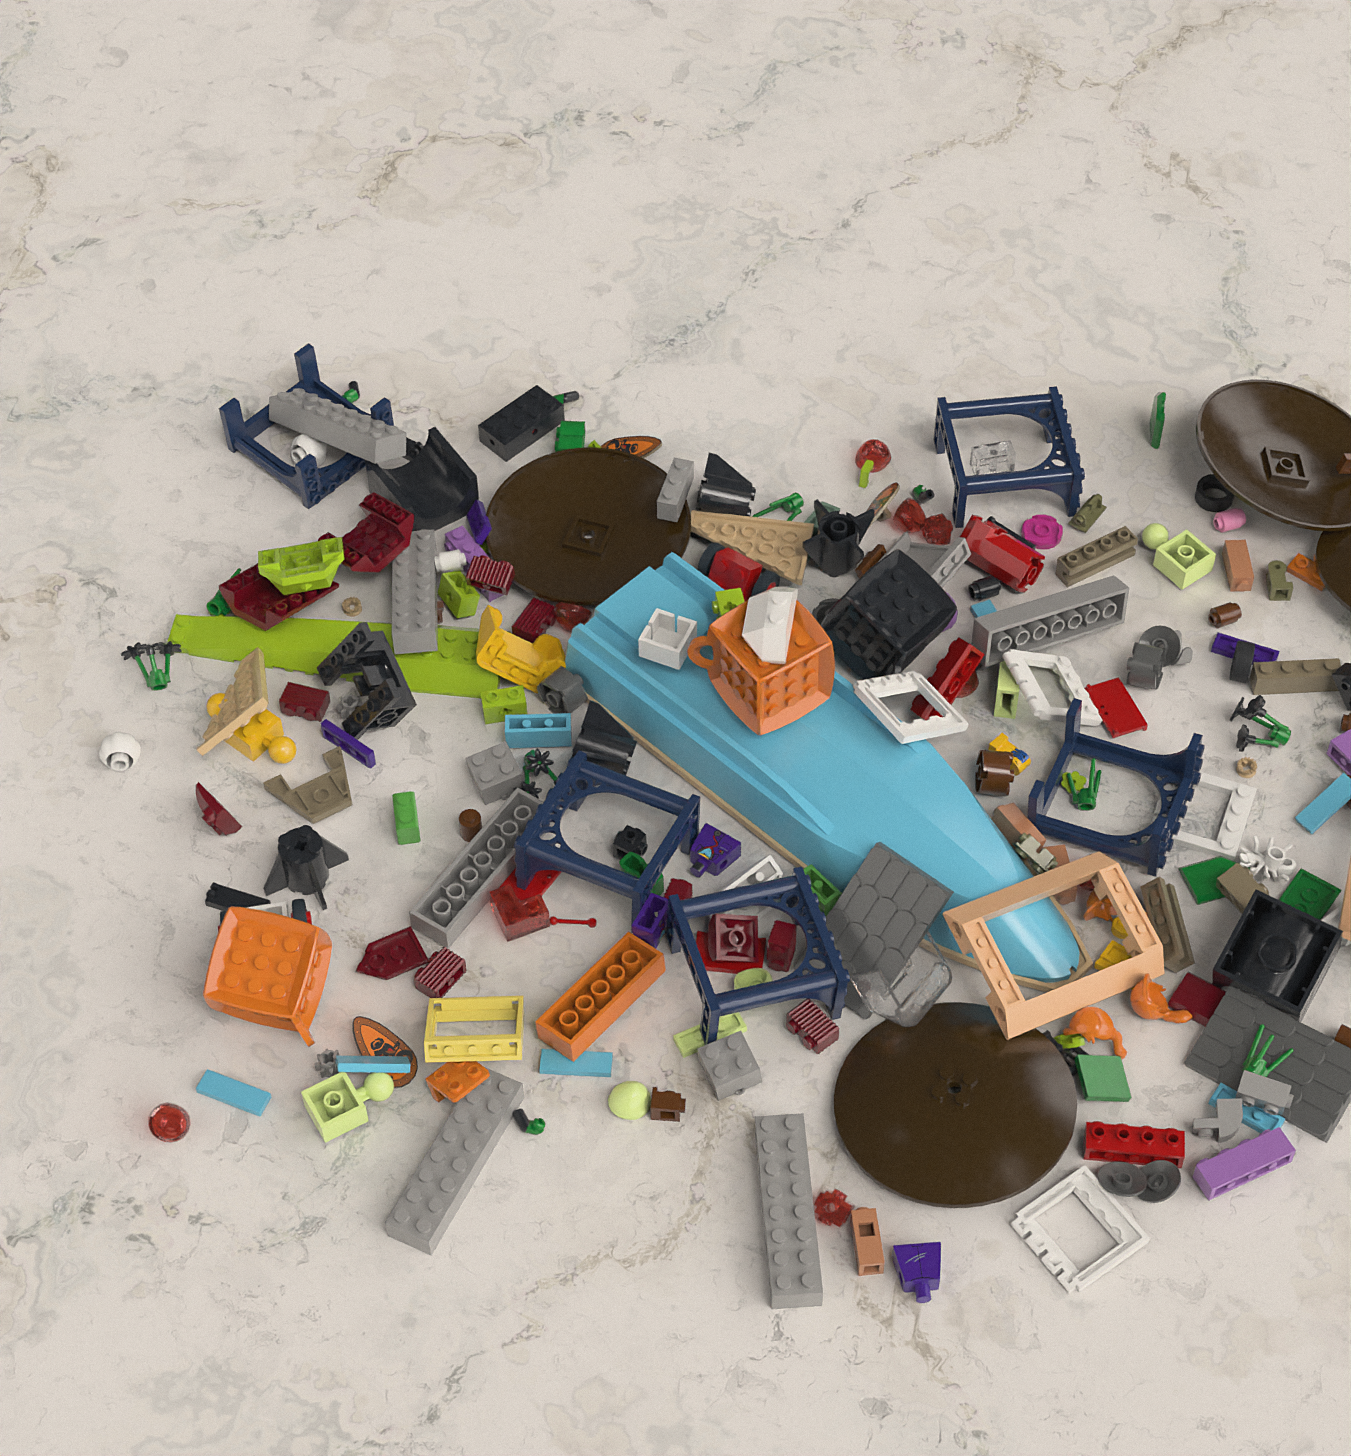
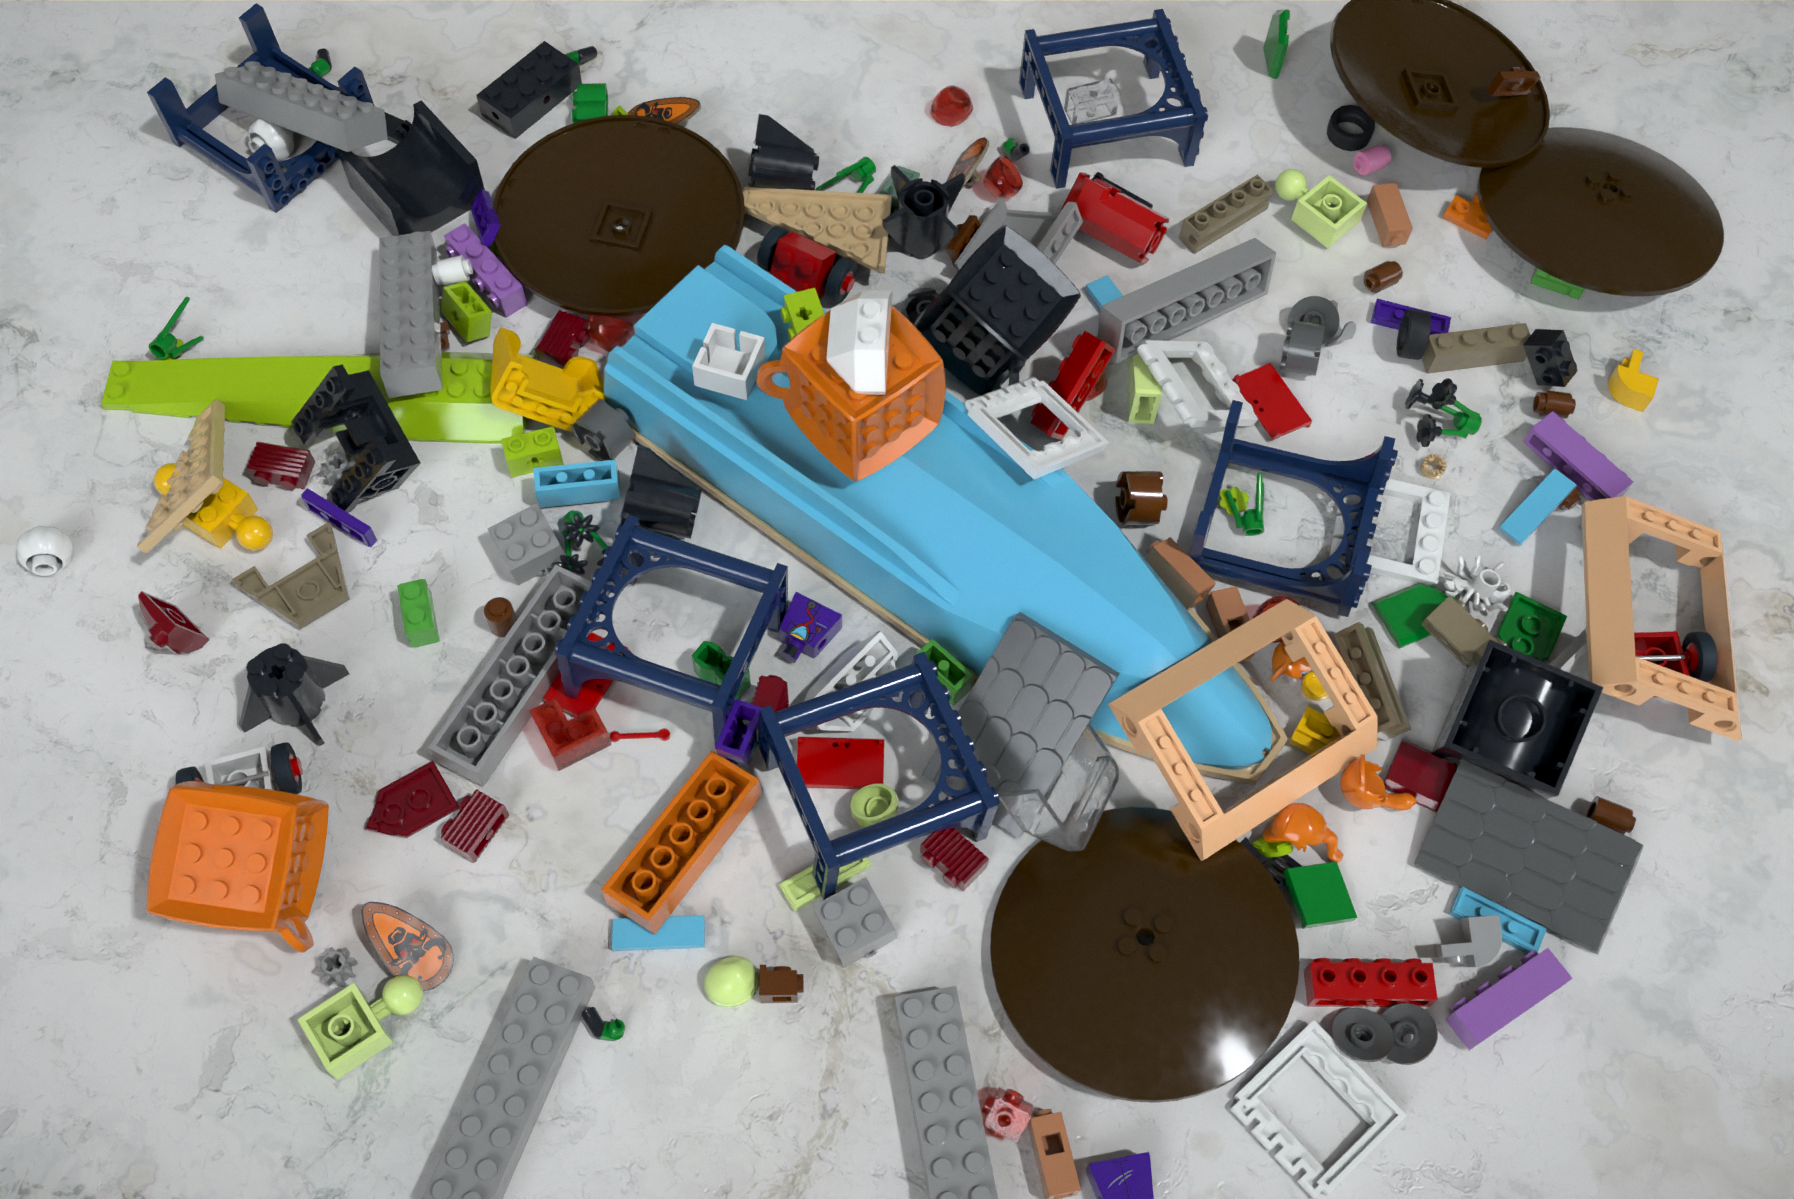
camera: 10 degrees left, 10 degrees up
(157, 679) = (89, 448): plant -> none
(169, 1122) = (122, 1078): clear red hat -> none
(223, 897) = (202, 743): black hinge -> none
(233, 1092) = (211, 1018): medium azure tile -> none
(261, 603) = (230, 325): dark red slope -> none
(302, 566) = (261, 290): lime piece -> none
(352, 601) = (328, 335): tan bush -> none
(375, 1064) = (391, 967): medium azure tile -> none
(377, 537) = (355, 250): dark red slope -> none
(456, 1080) = (505, 977): orange bracket -> none
(474, 1046) = (527, 937): light yellow window -> none
(490, 575) = (502, 285): dark red brick -> none
(628, 841) = (703, 625): black brick -> none
(675, 489) = (721, 162): light grey brick -> none
(733, 938) = (845, 748): dark red slope -> none
(781, 946) = (905, 752): dark red brick -> none
(864, 475) = (946, 122): lime tile -> none
(937, 530) = (1037, 193): clear red brick -> none
(984, 588) = (1100, 262): black brick -> none
(1020, 758) = (1147, 462): yellow leg -> none
(1028, 848) = (1213, 612): hinge -> none
(1042, 531) = (1158, 186): dark pink tile -> none
(1088, 513) = (1209, 161): olive hinge -> none
(1256, 1063) = (1507, 866): green plant -> none
(1264, 1093) = (1521, 901): light grey brick -> none
(1276, 582) = (1436, 232): olive leg -> none

